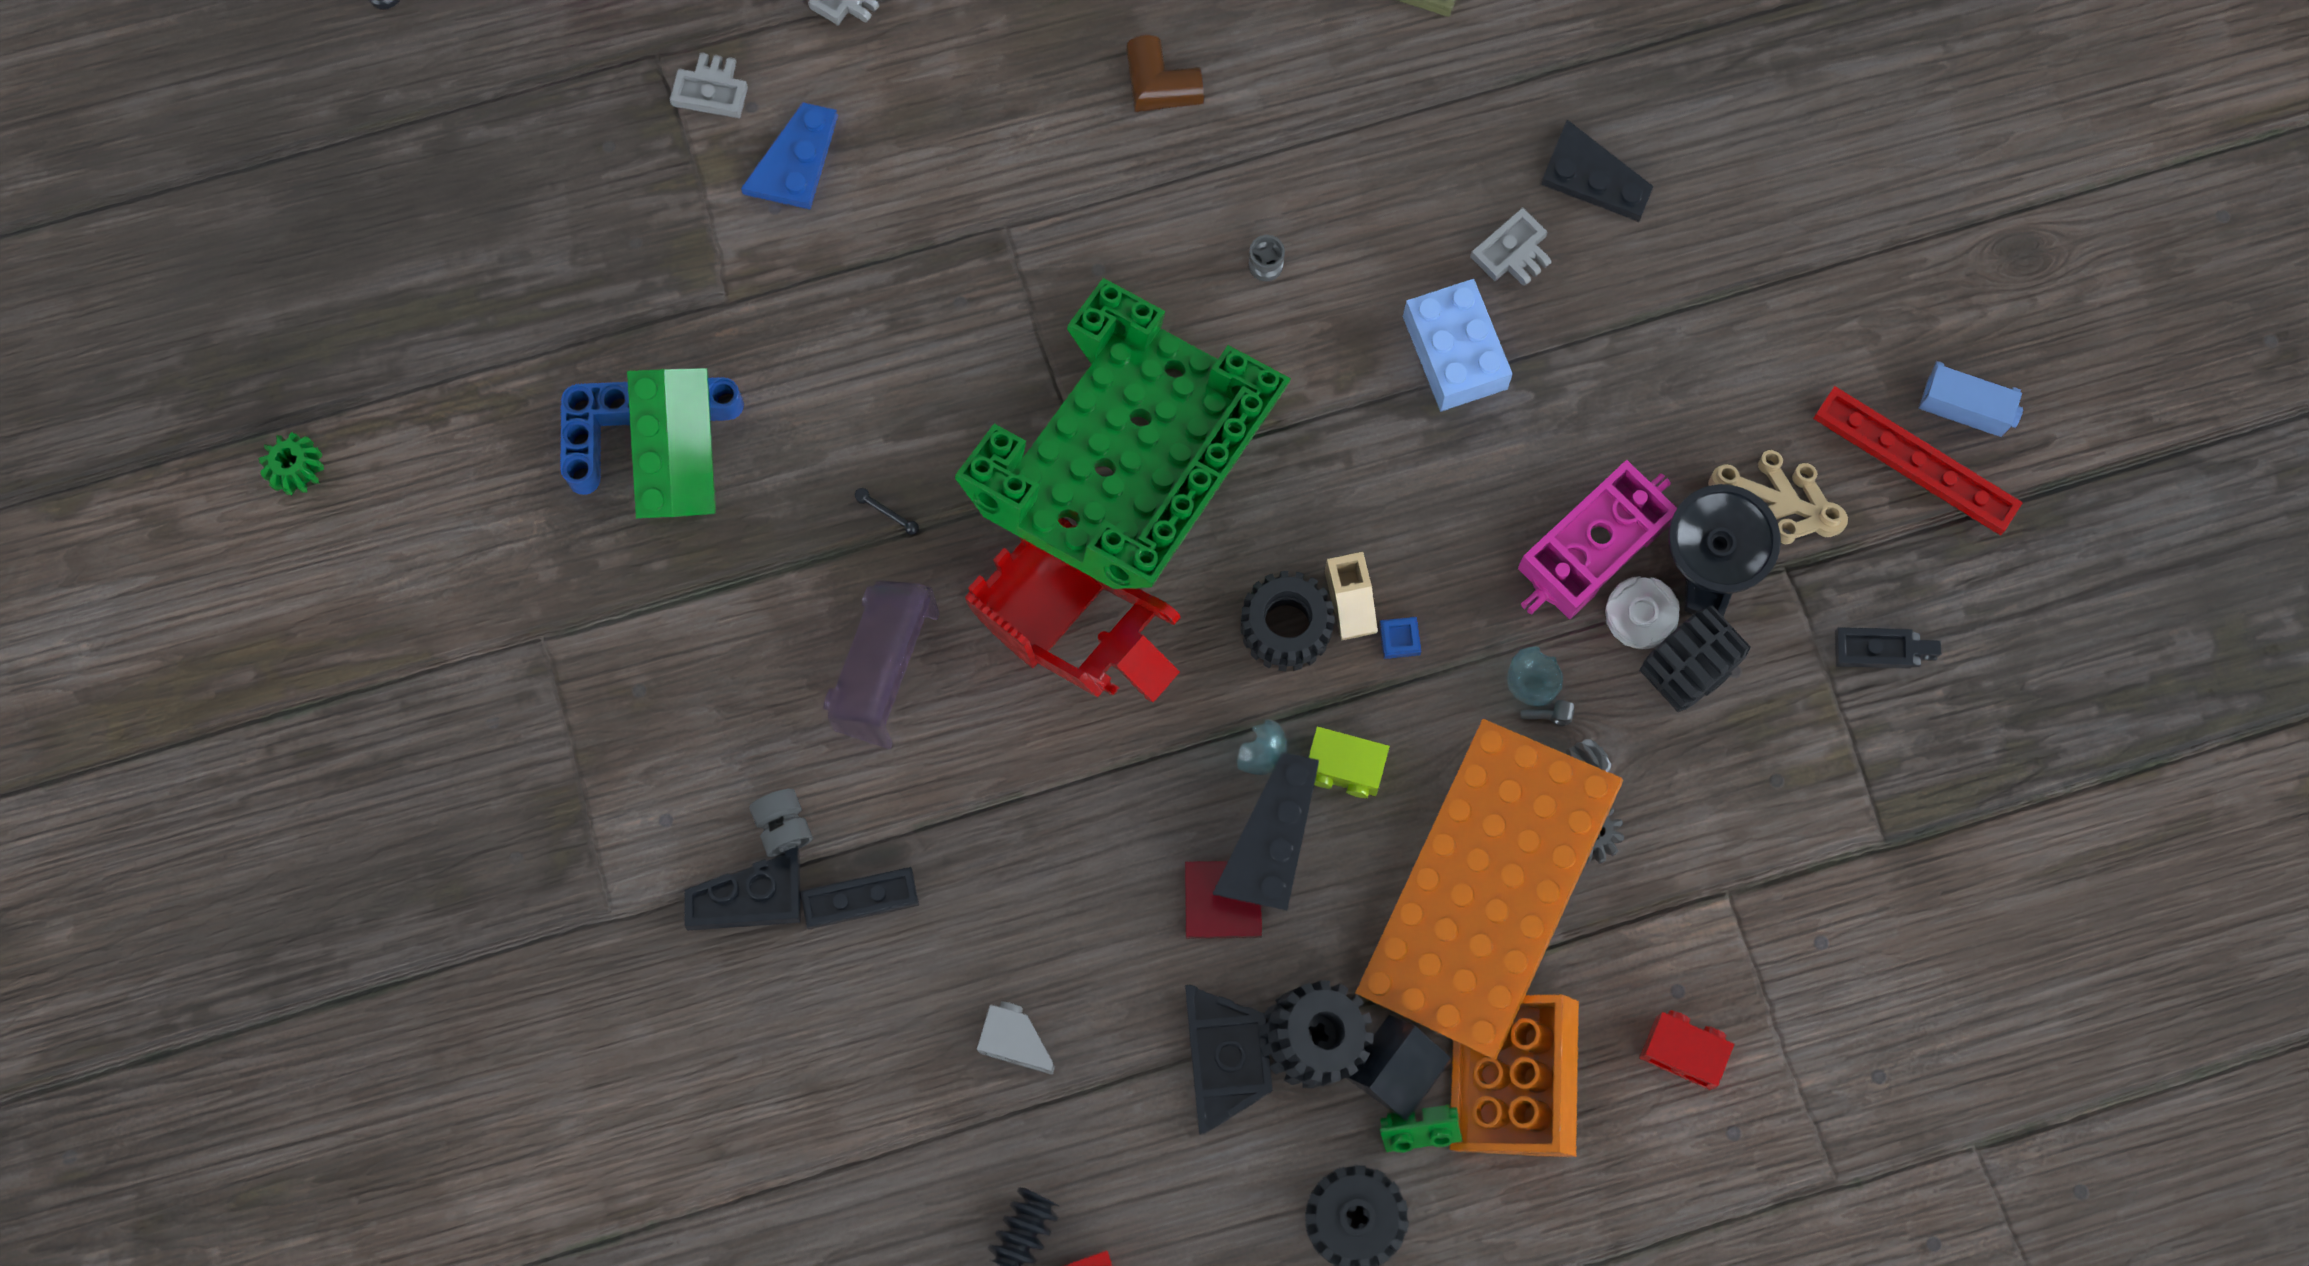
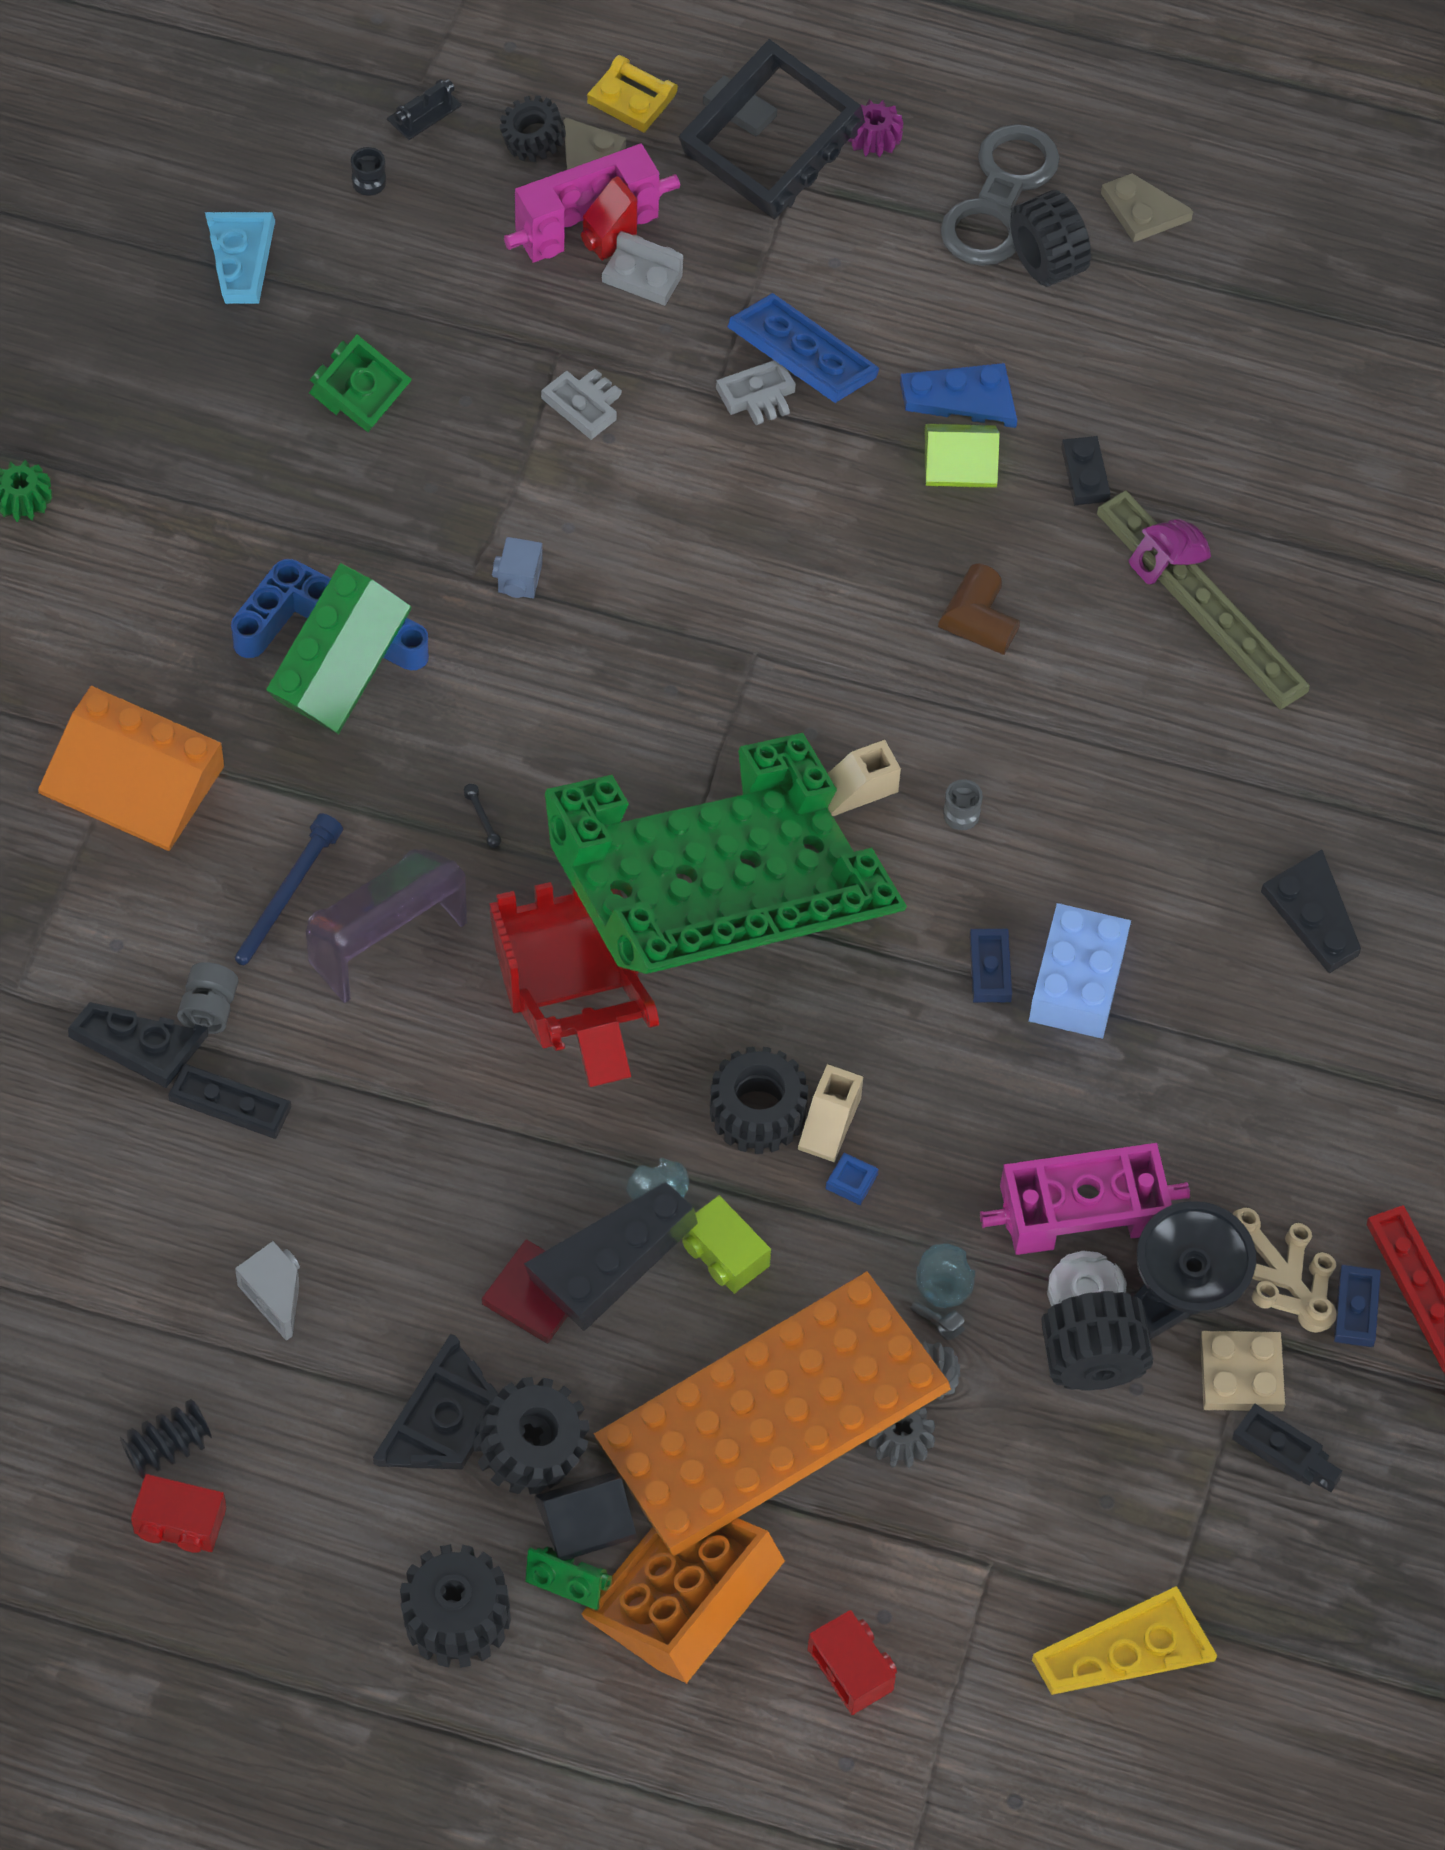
camera: 30 degrees right, 15 degrees down
(323, 126) = (241, 252): none -> medium azure wing
(511, 187) = (358, 383): none -> green plate
(568, 658) = (131, 768): none -> orange slope
(763, 272) = (518, 567): none -> sand blue brick
(769, 612) = (324, 831): none -> dark blue piece
(795, 160) = (614, 498): blue wing -> none
(1175, 283) = (864, 777): none -> tan slope
(1383, 384) = (990, 965): none -> dark blue plate
(1513, 249) = (1192, 924): light grey hinge -> none
(1804, 603) = (1242, 1370): none -> tan plate
(1855, 492) = (1357, 1306): none -> dark blue plate
(1881, 889) = (1131, 1644): none -> yellow wing

